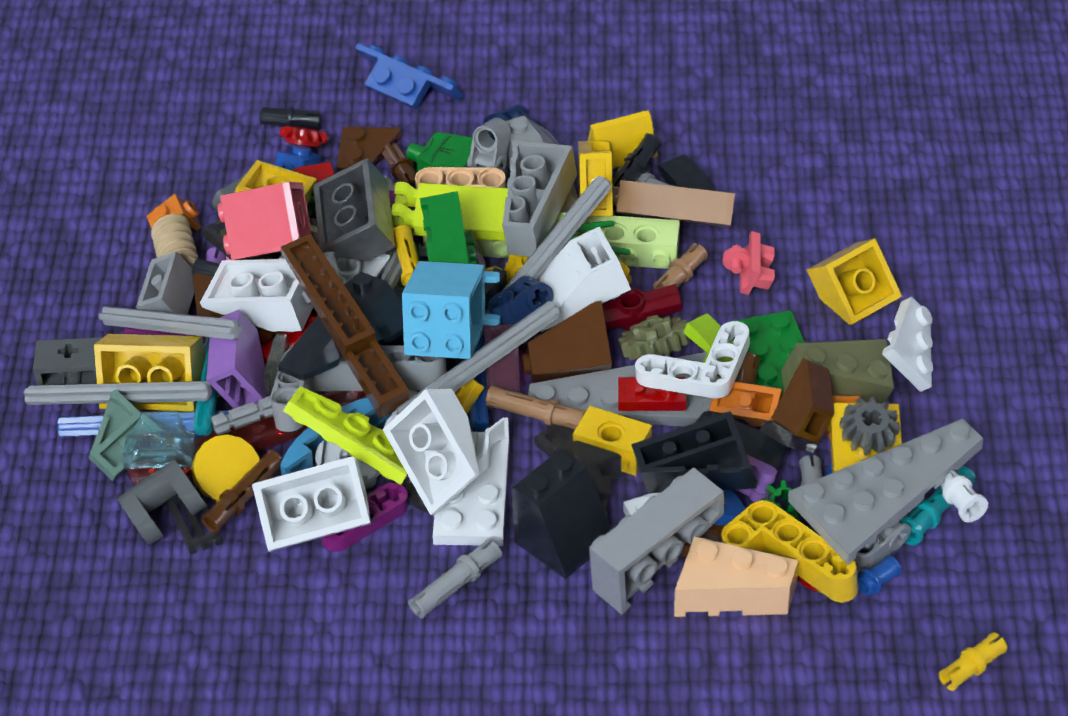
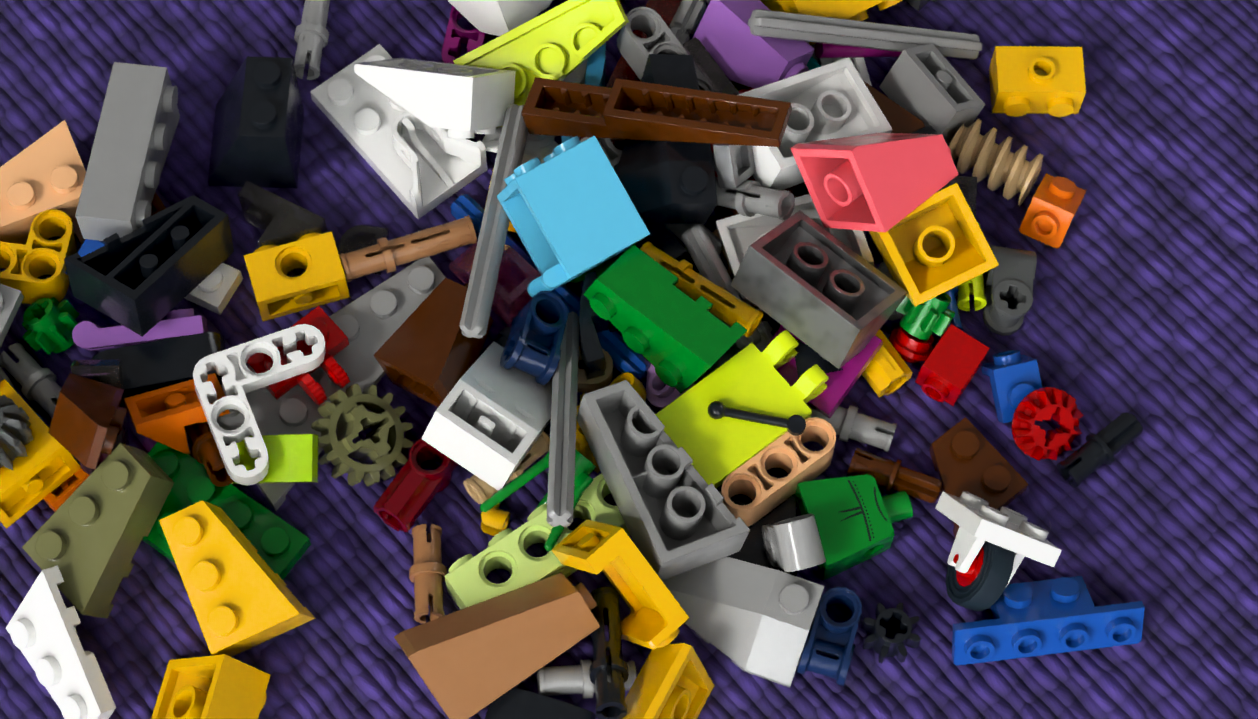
camera: 135 degrees right, 20 degrees up
(100, 272) = (1037, 80): none -> yellow brick
(399, 98) = (988, 549): none -> white plate
(435, 180) = (795, 424): none -> black hinge
(477, 110) = (893, 618): none -> black gear
(751, 263) = (337, 630): coral hips -> none
(790, 299) = (228, 582): none -> yellow wedge

